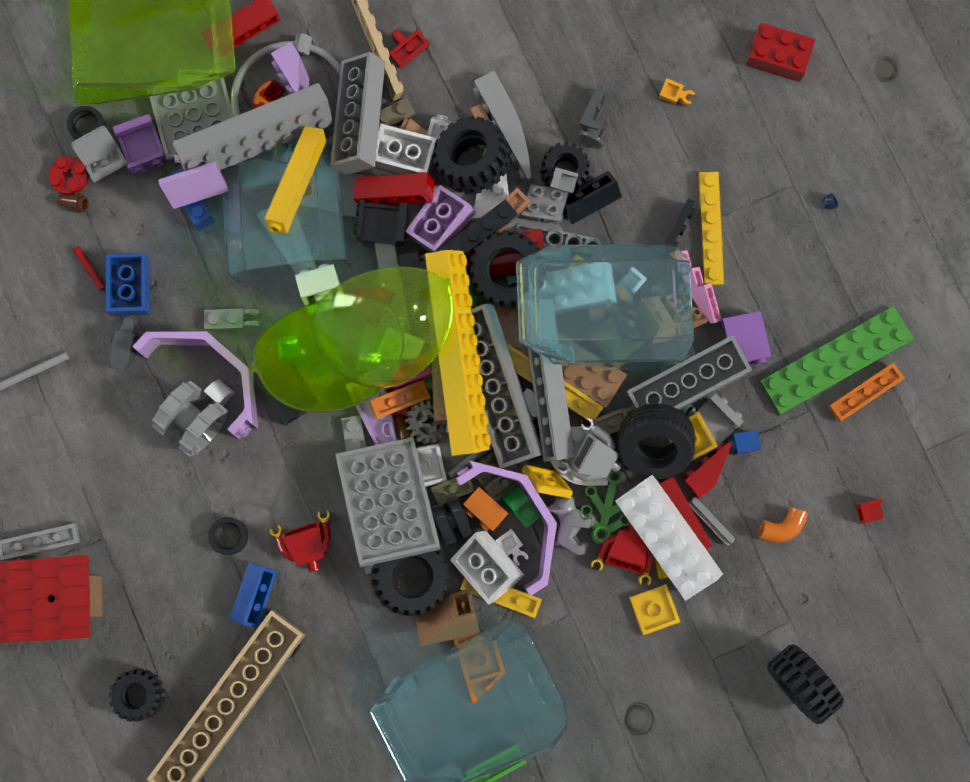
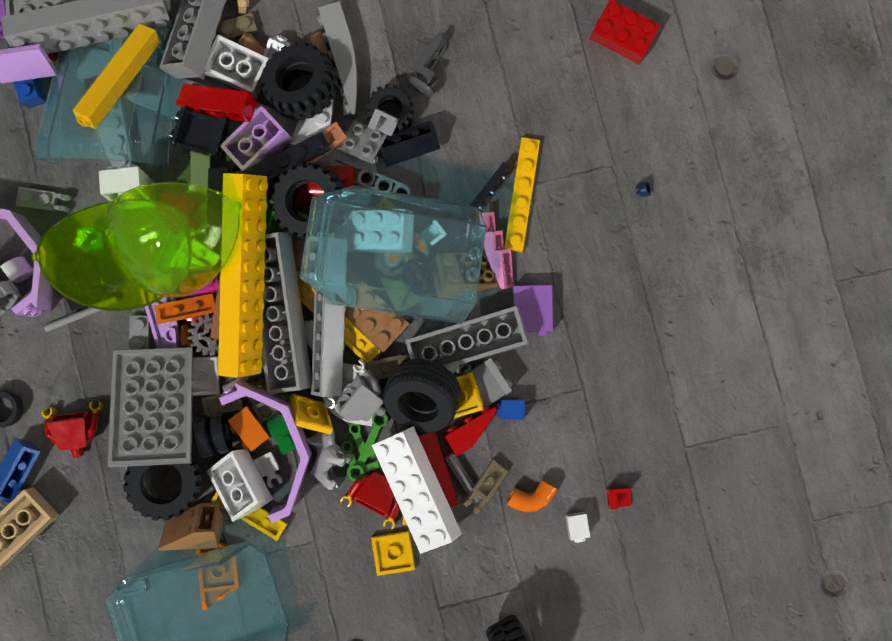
camera: 15 degrees right, 5 degrees up
(285, 429) = (71, 318): none -> light grey bar
(673, 92) = (512, 53): light orange plate -> none
(735, 522) = (486, 485): none -> dark tan hinge
(835, 547) = (577, 526): none -> white brick
(836, 360) = (617, 345): bright green plate -> none
(866, 392) = (639, 382): orange plate -> none

